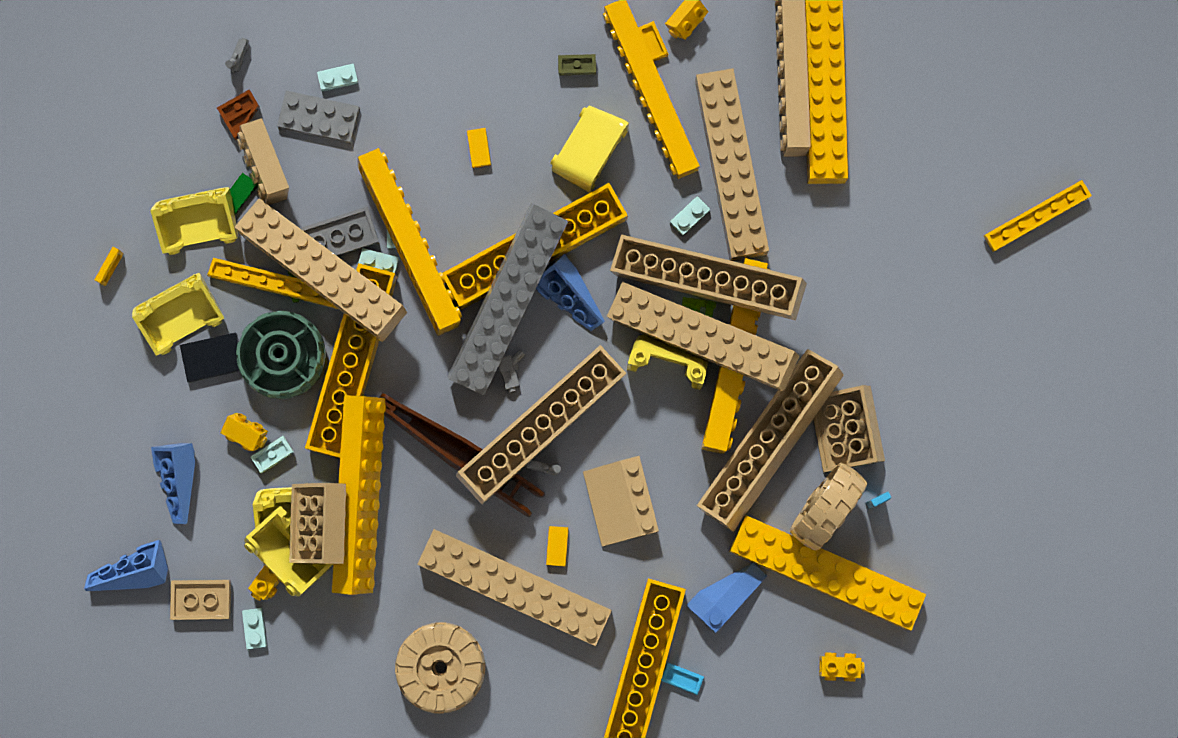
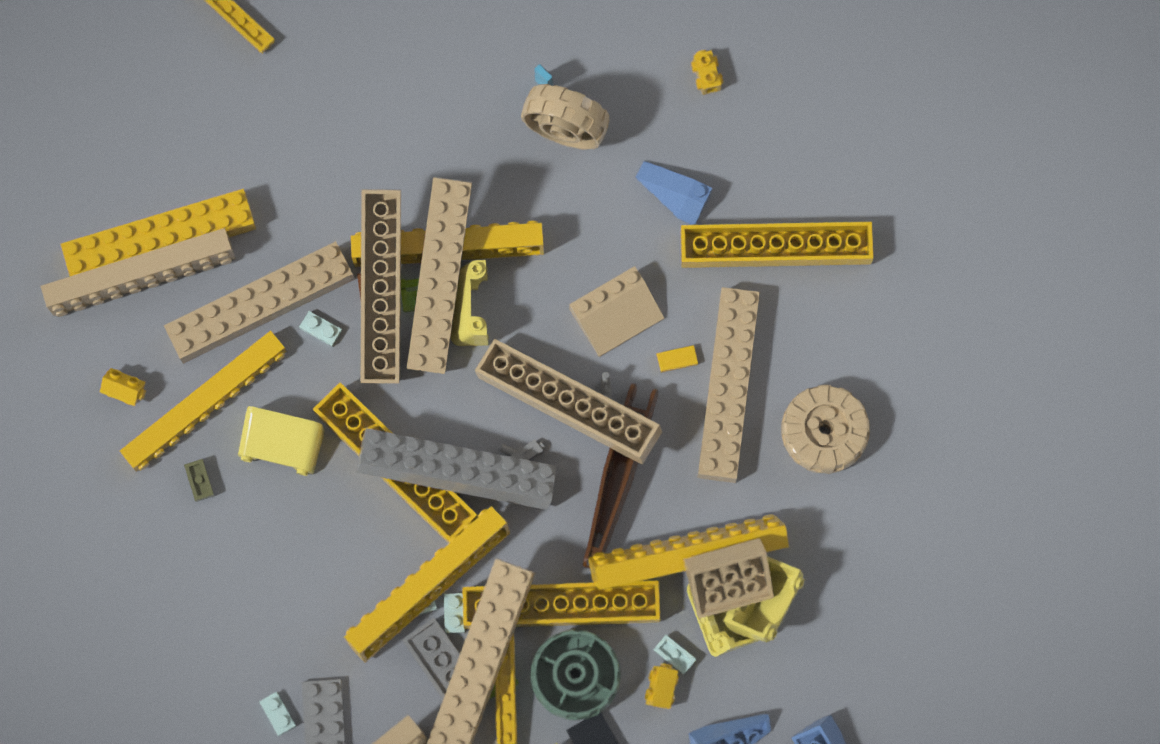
camera: 105 degrees left, 5 degrees down
(200, 599) = (835, 678): tan plate -> none
(254, 628) = (845, 618): light aqua plate -> none
(264, 585) = (800, 618): yellow brick -> none
(478, 148) = (310, 551): yellow tile -> none
(567, 289) = (432, 414): medium blue wedge -> none
(653, 41) = (153, 413): yellow tile -> none
(682, 678) = (763, 207): medium azure tile -> none
(770, 440) = (520, 190): tan brick -> none
(827, 573) = (625, 107): yellow brick -> none
(848, 429) = (484, 126): tan slope -> none

